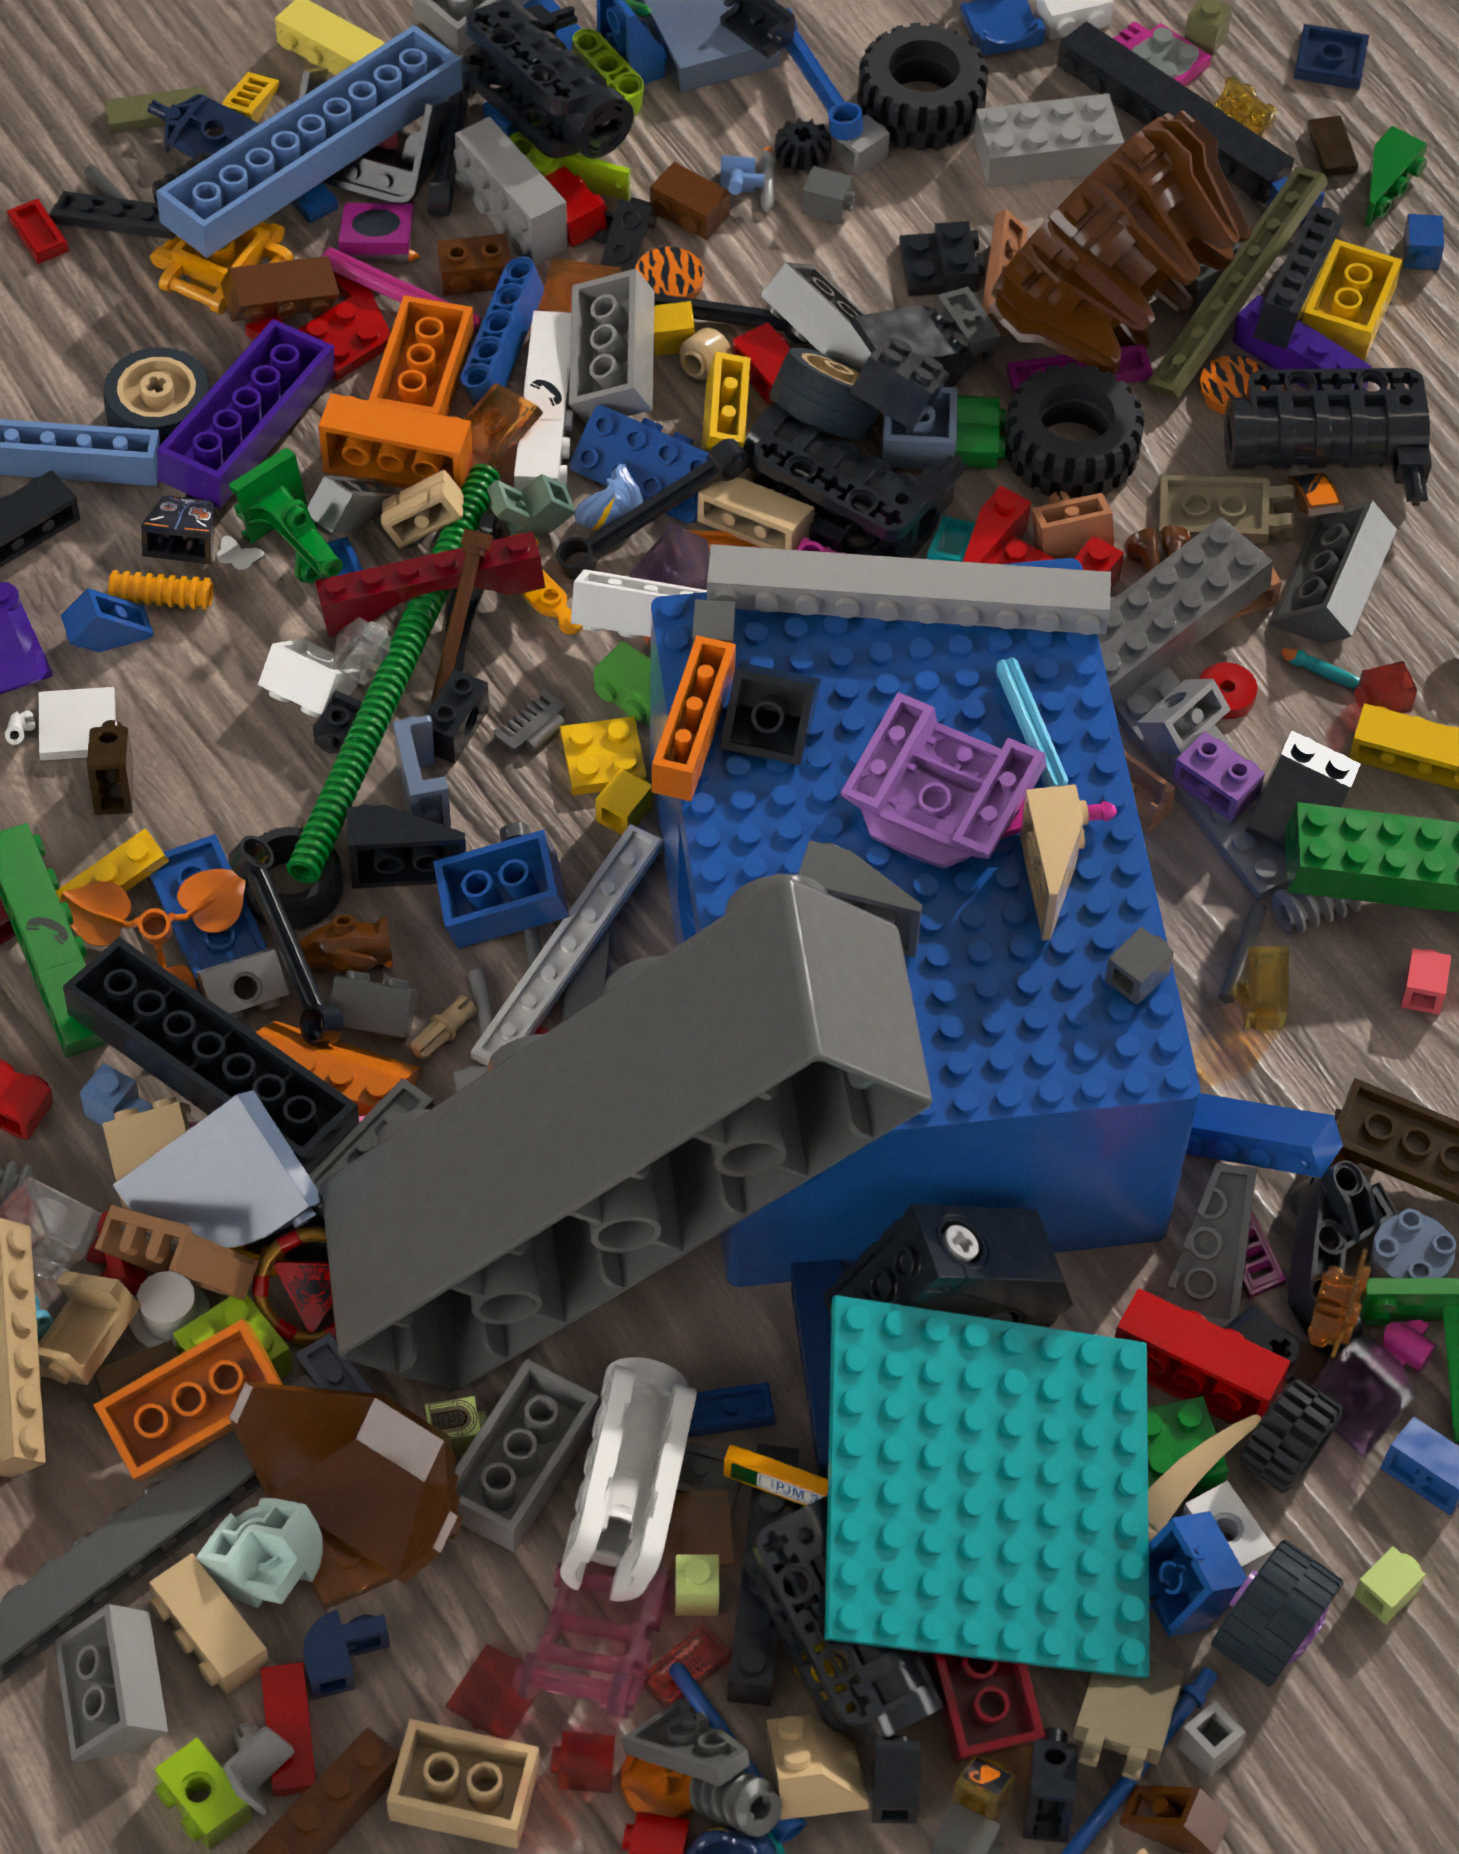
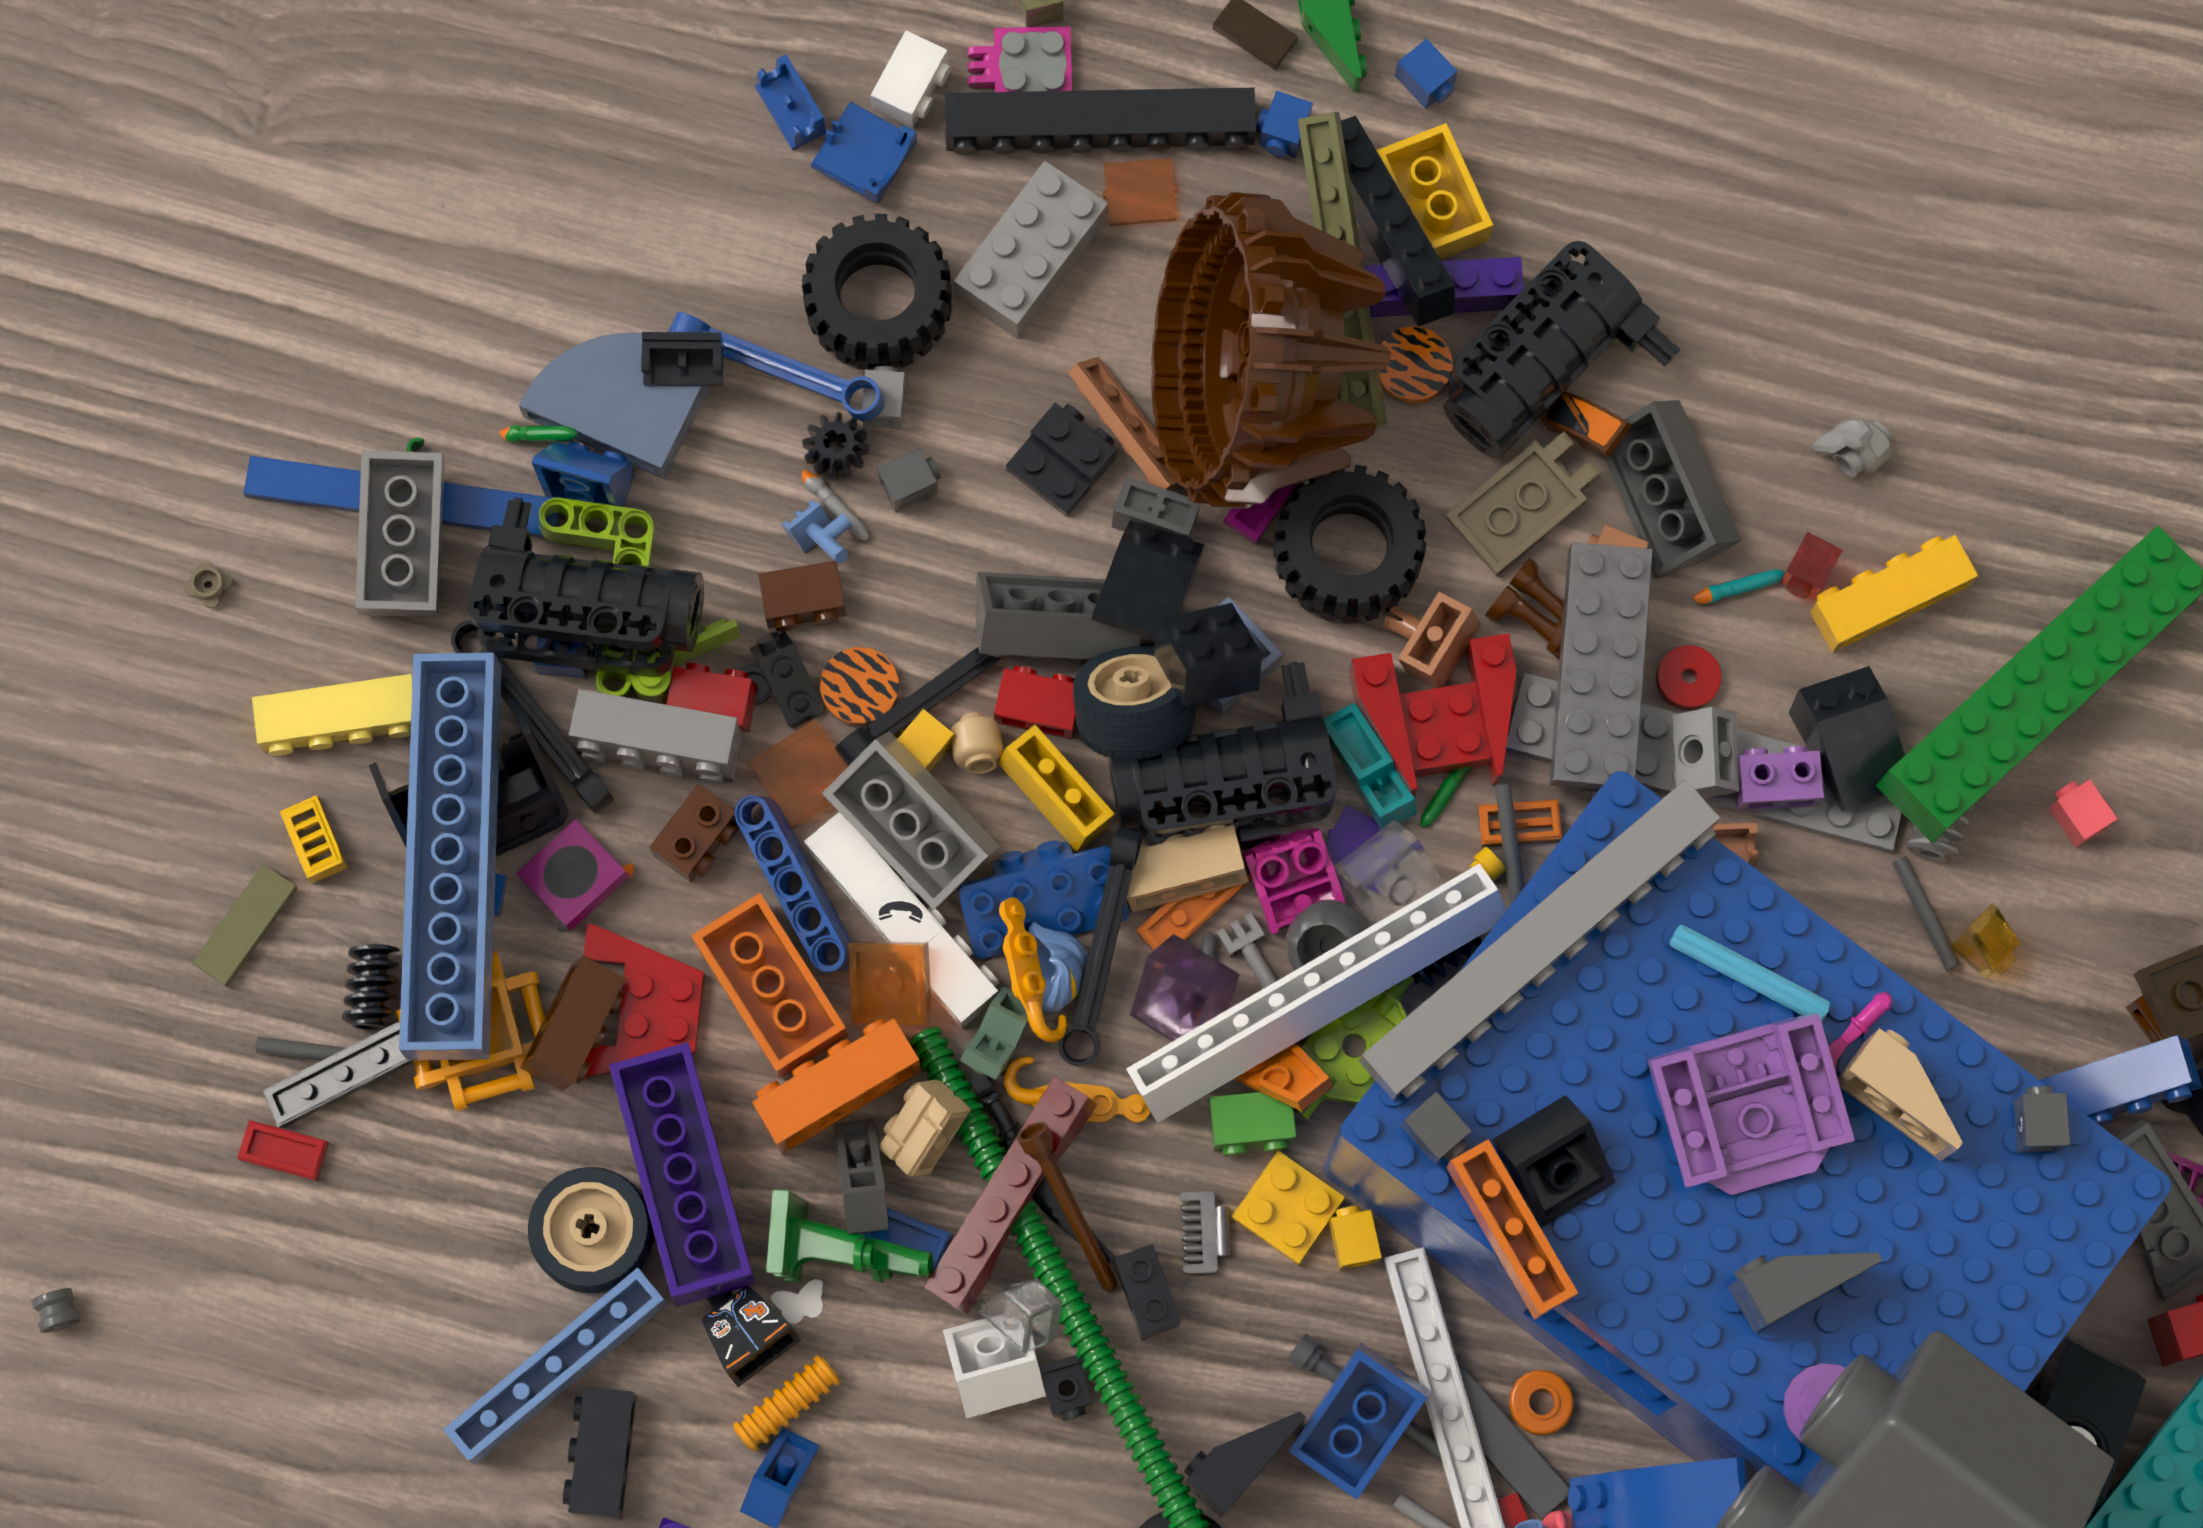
camera: 45 degrees left, 20 degrees up
(192, 118) = (305, 931): dark blue plate -> none
(379, 280) = (660, 921): dark pink axle -> none
(413, 751) = (1182, 1387): sand blue panel -> none
(587, 477) = (1025, 970): none -> light orange piece
(978, 431) = (1269, 608): green brick -> none
(1243, 105) = (1153, 62): clear yellow hips -> none

